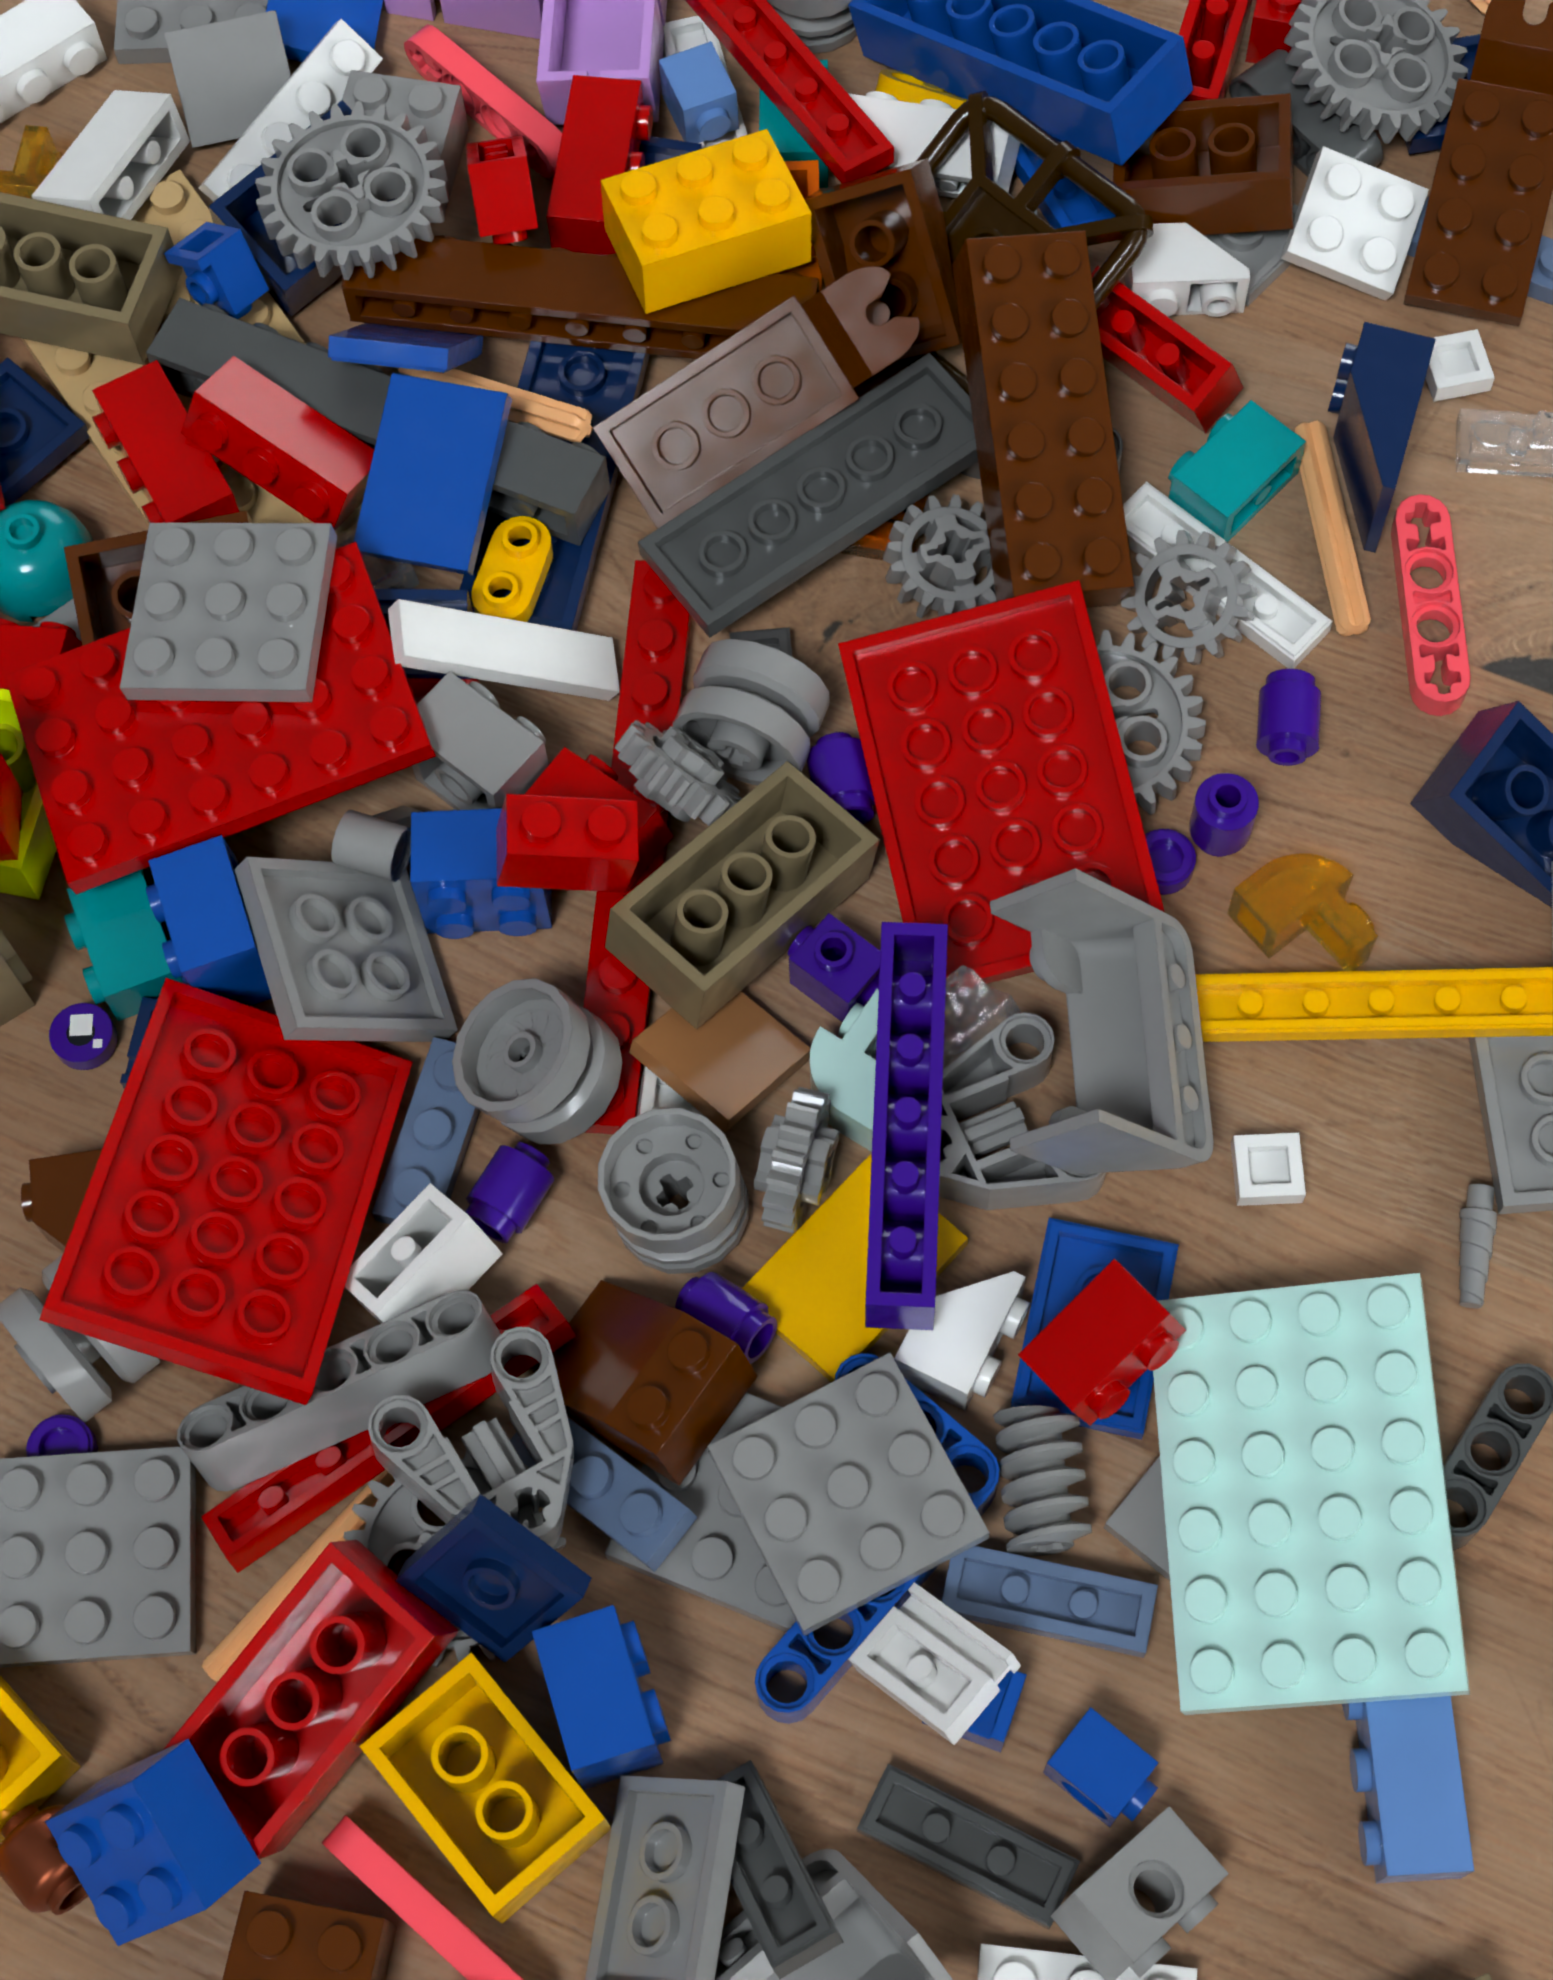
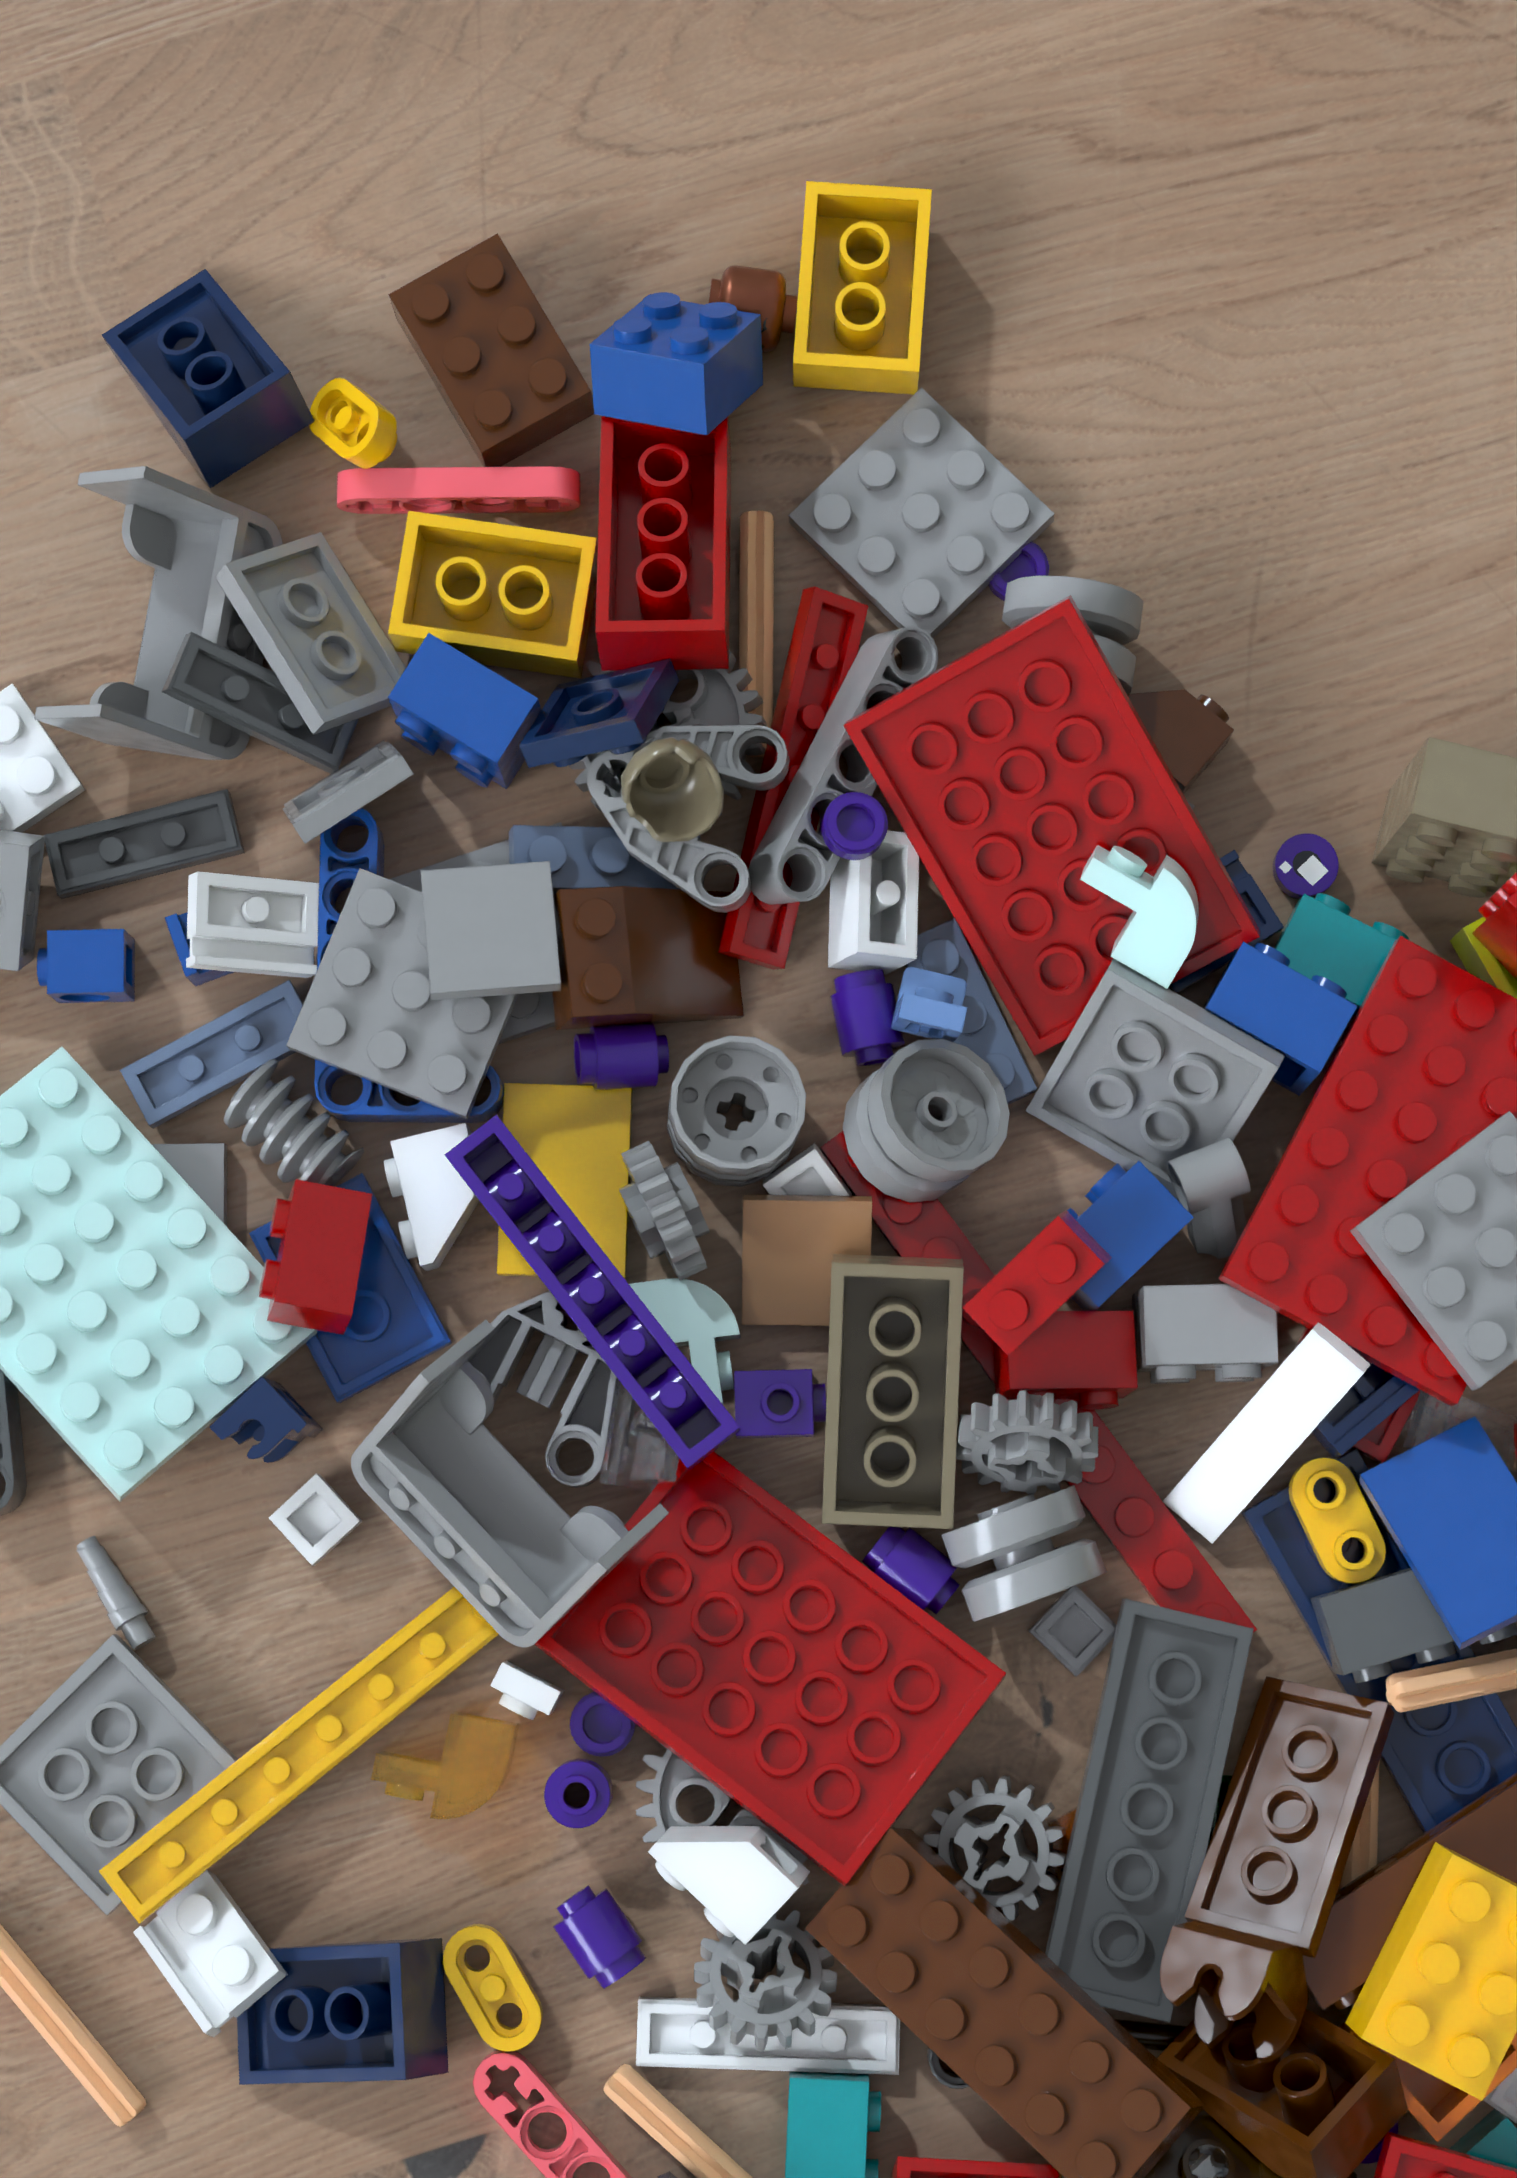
camera: 140 degrees right, 15 degrees up
(222, 1040) = (1162, 916): none -> light aqua brick
(379, 1313) = (854, 826): none -> dark purple tile
(455, 1143) = (930, 1005): none -> medium blue bracket
(492, 1441) = (673, 790): none -> dark tan hair
(741, 1473) = (490, 930): none -> light grey tile
(757, 1717) = (346, 790): none -> light grey tile
(1154, 659) = (732, 1871): none -> white slope
(1203, 918) = (525, 1692): none -> white plate
(1241, 1259) = (268, 1416): none -> dark blue hinge
(1397, 750) = (489, 1988): none -> yellow plate

